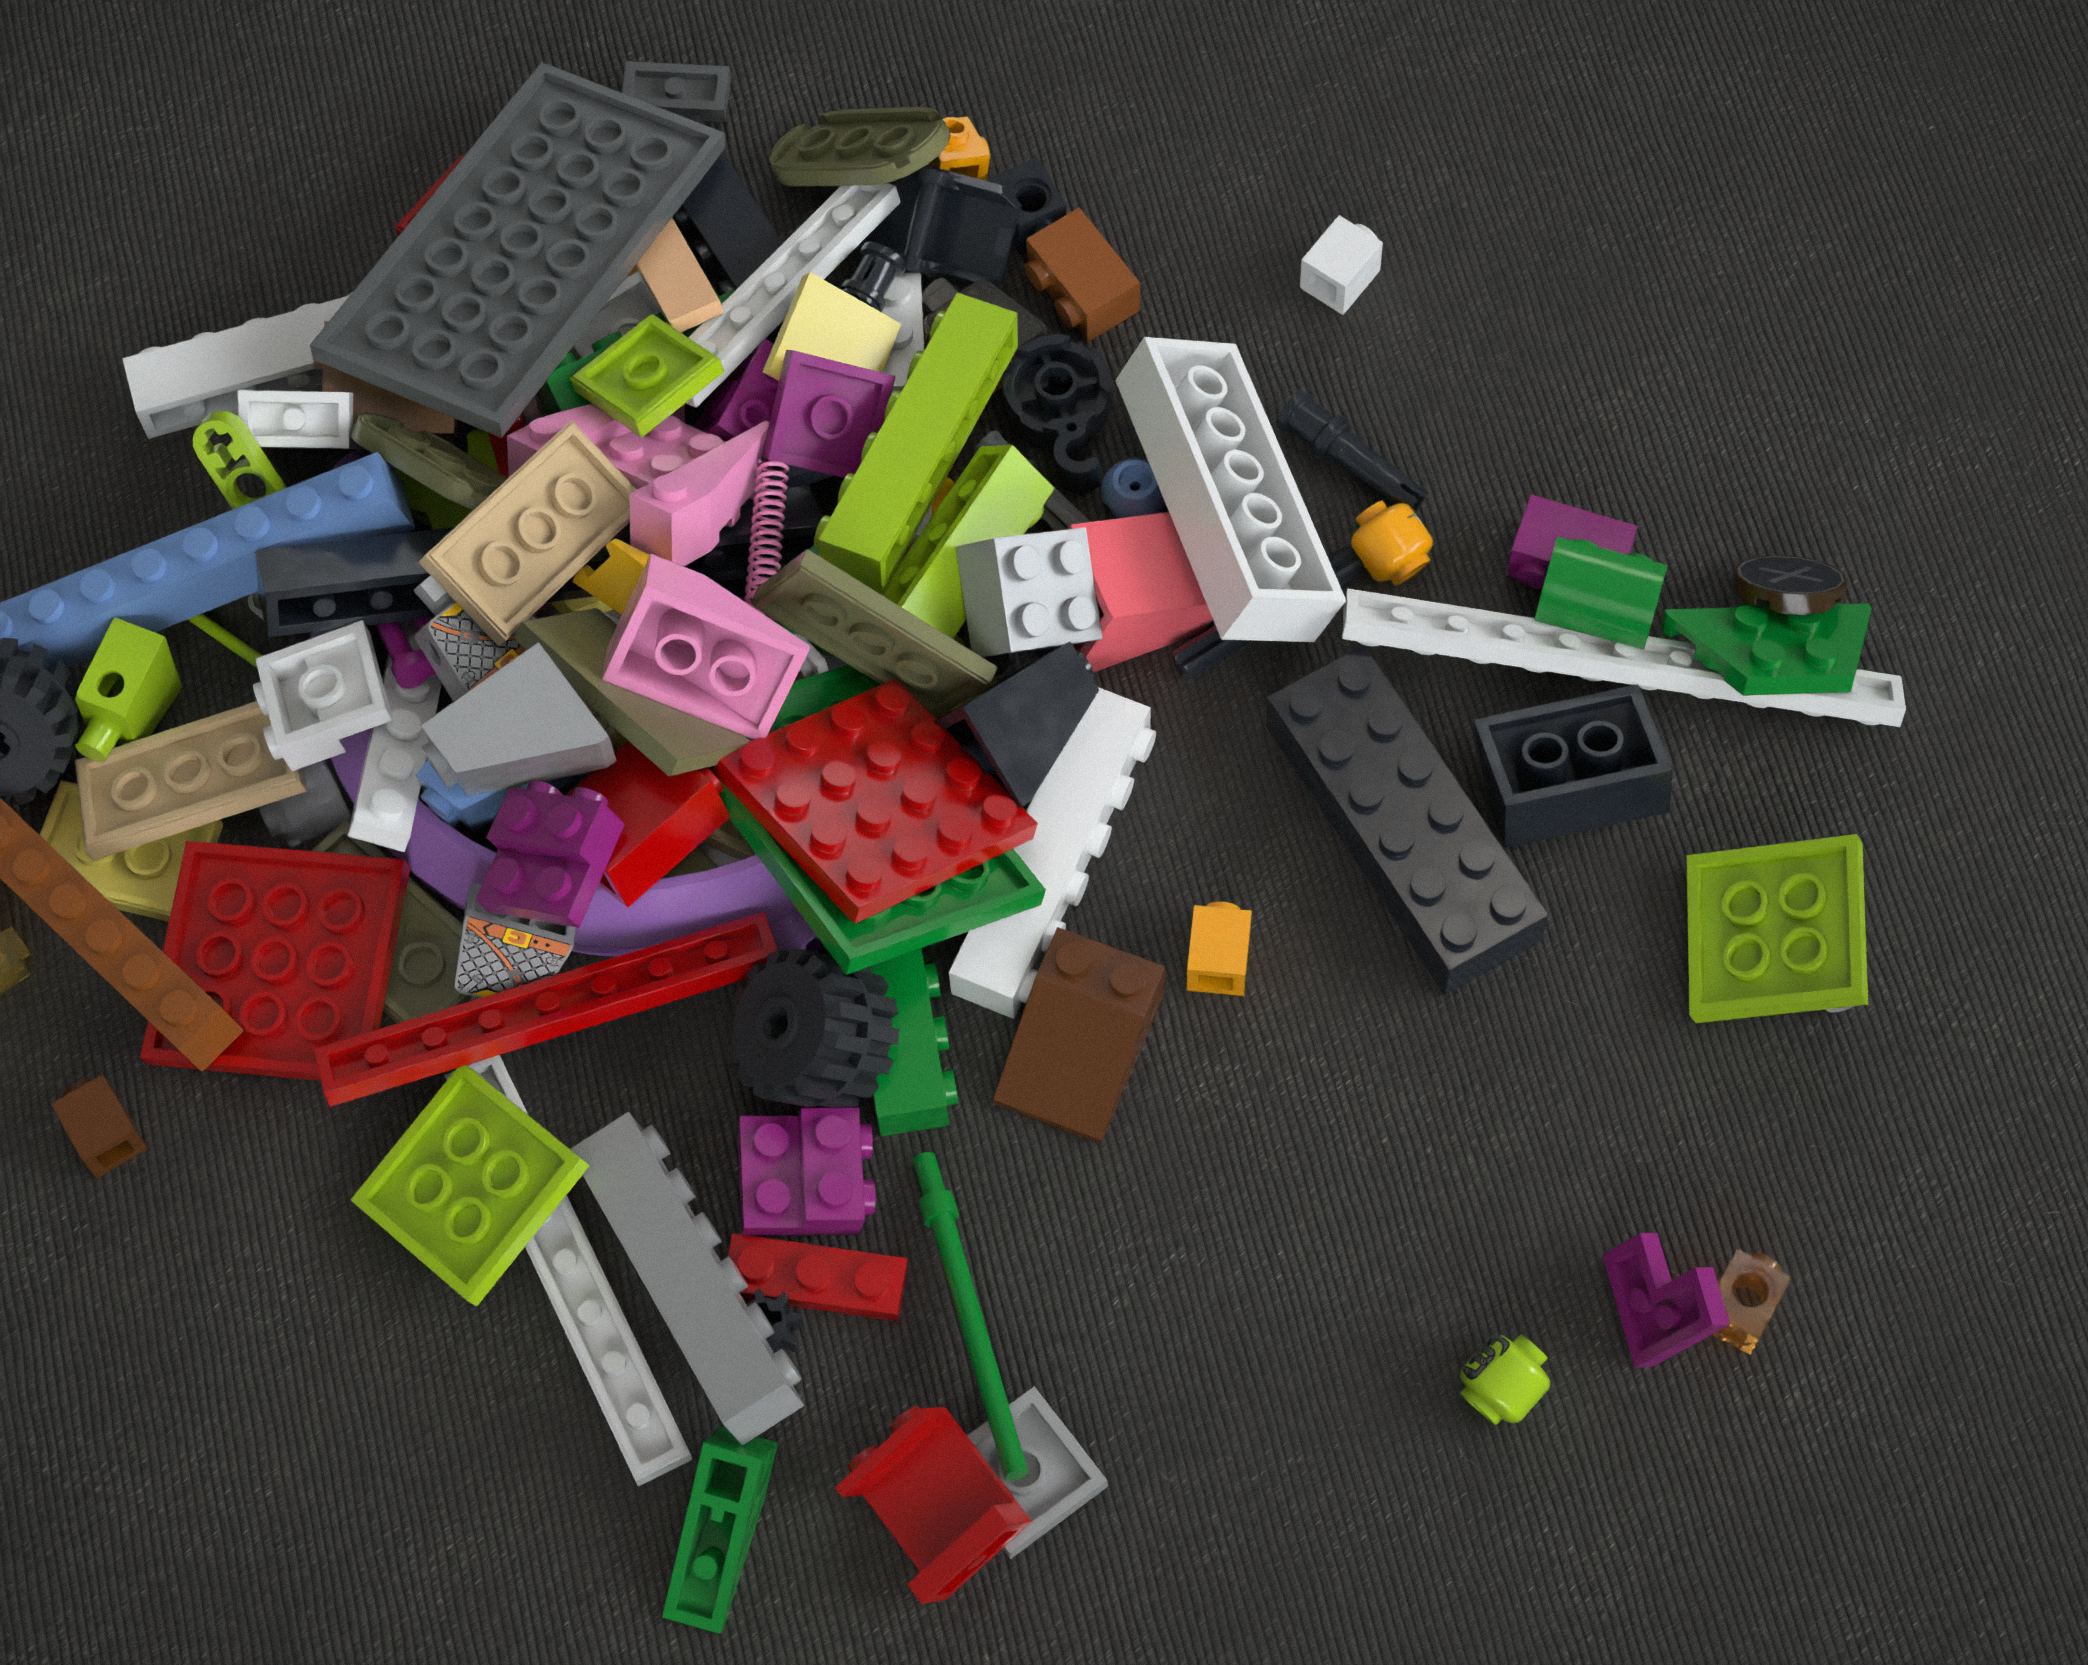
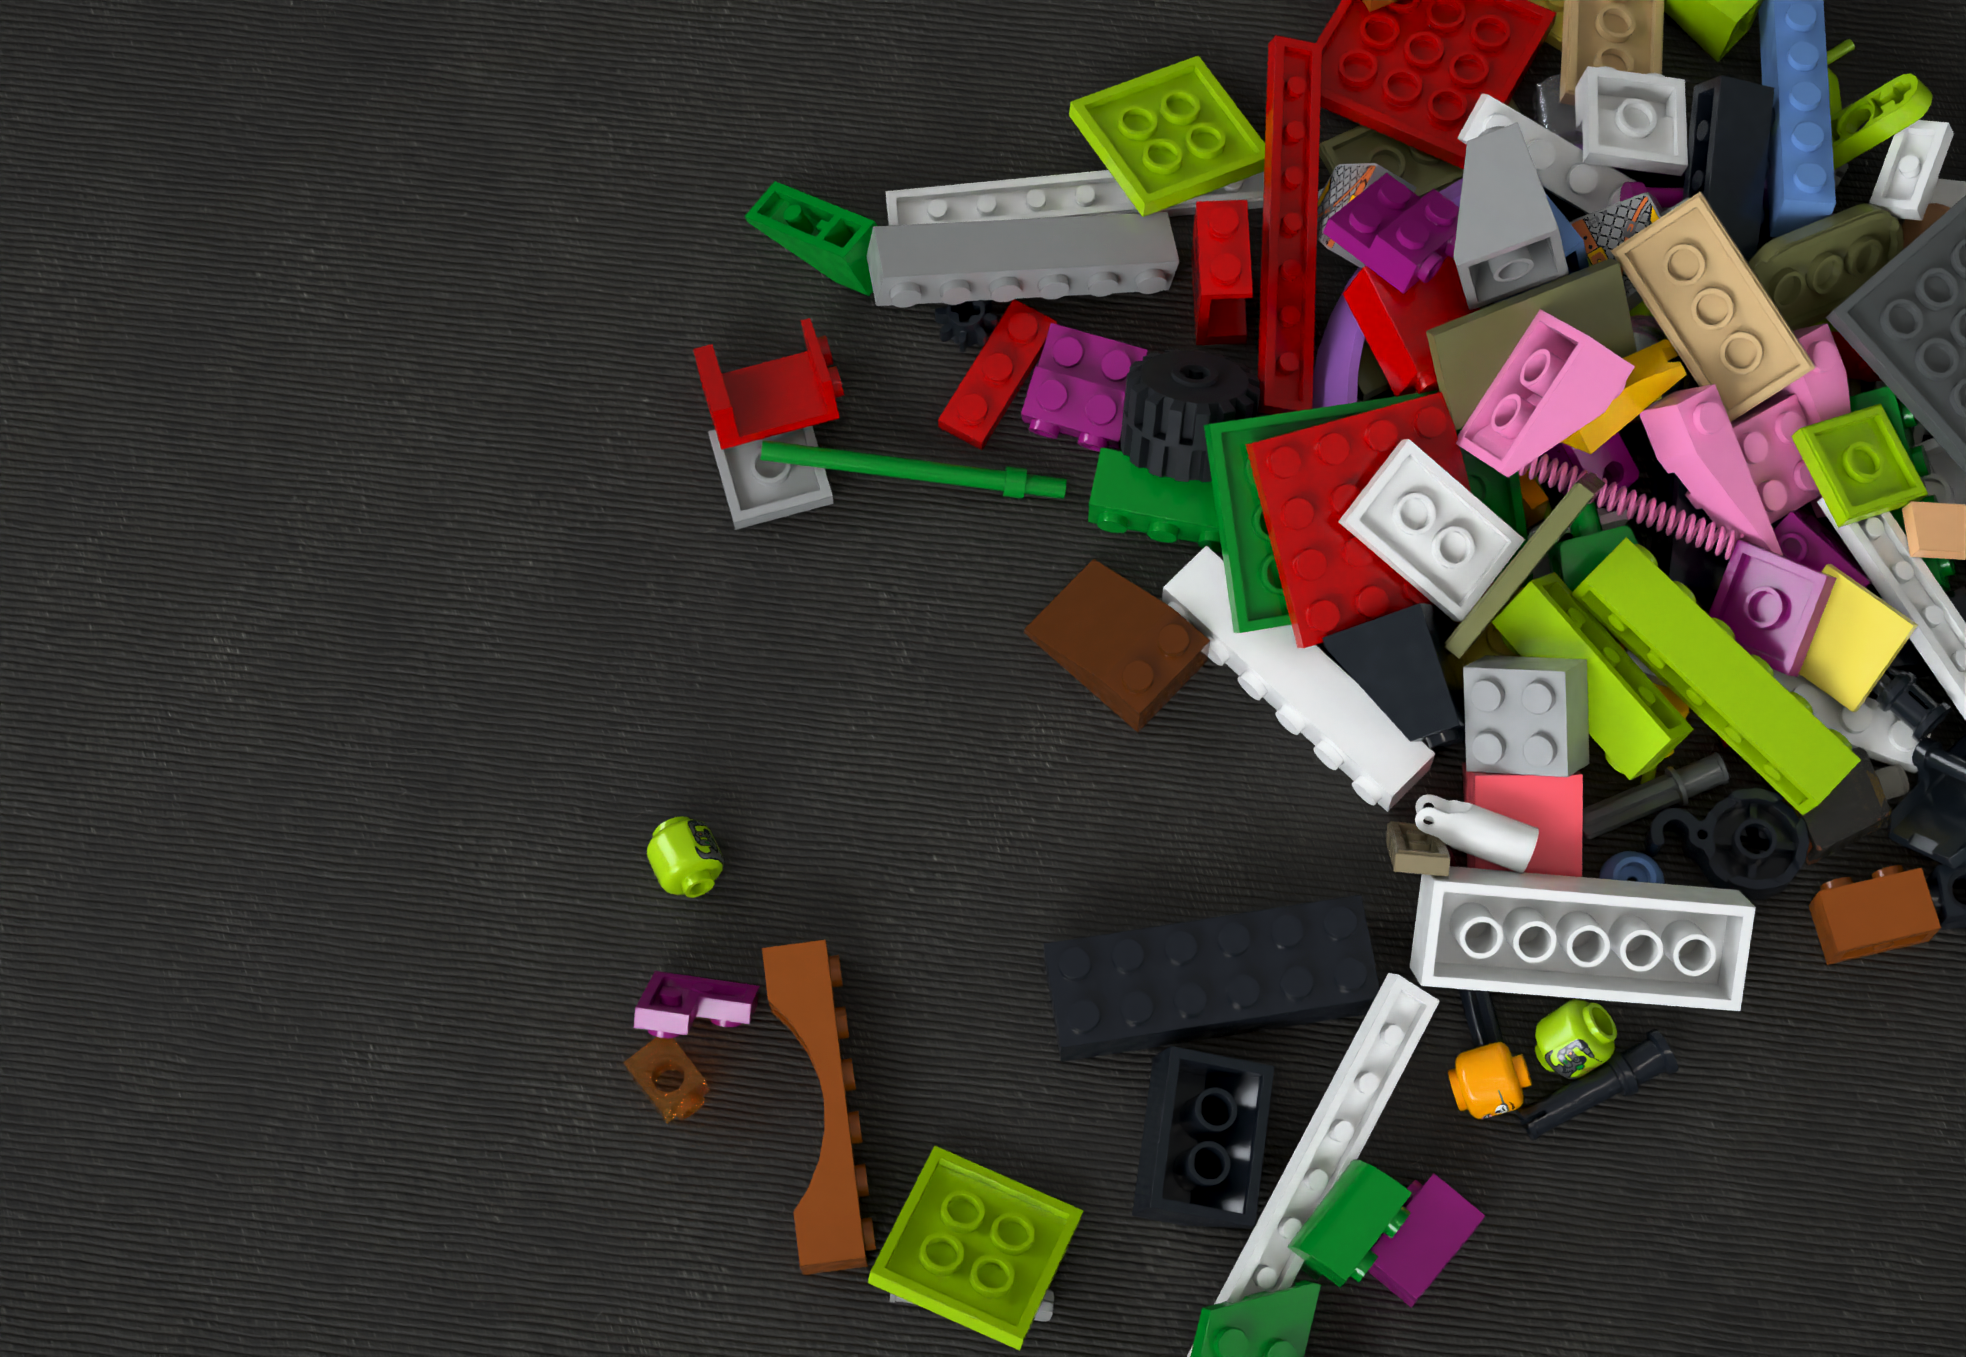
camera: 110 degrees right, 5 degrees up
(628, 1060) = (1221, 271): none -> red panel
(874, 726) = (1431, 530): none -> white plate
(1168, 595) = (1478, 831): none -> white piece
(1203, 656) = (1416, 851): none -> dark tan tile
(1219, 949) = (1151, 779): light orange brick -> none
(1323, 478) = (1575, 1038): none -> lime head
(1341, 264) = (1807, 1158): white brick -> none
(1804, 1087) = (829, 1214): none -> dark orange arch

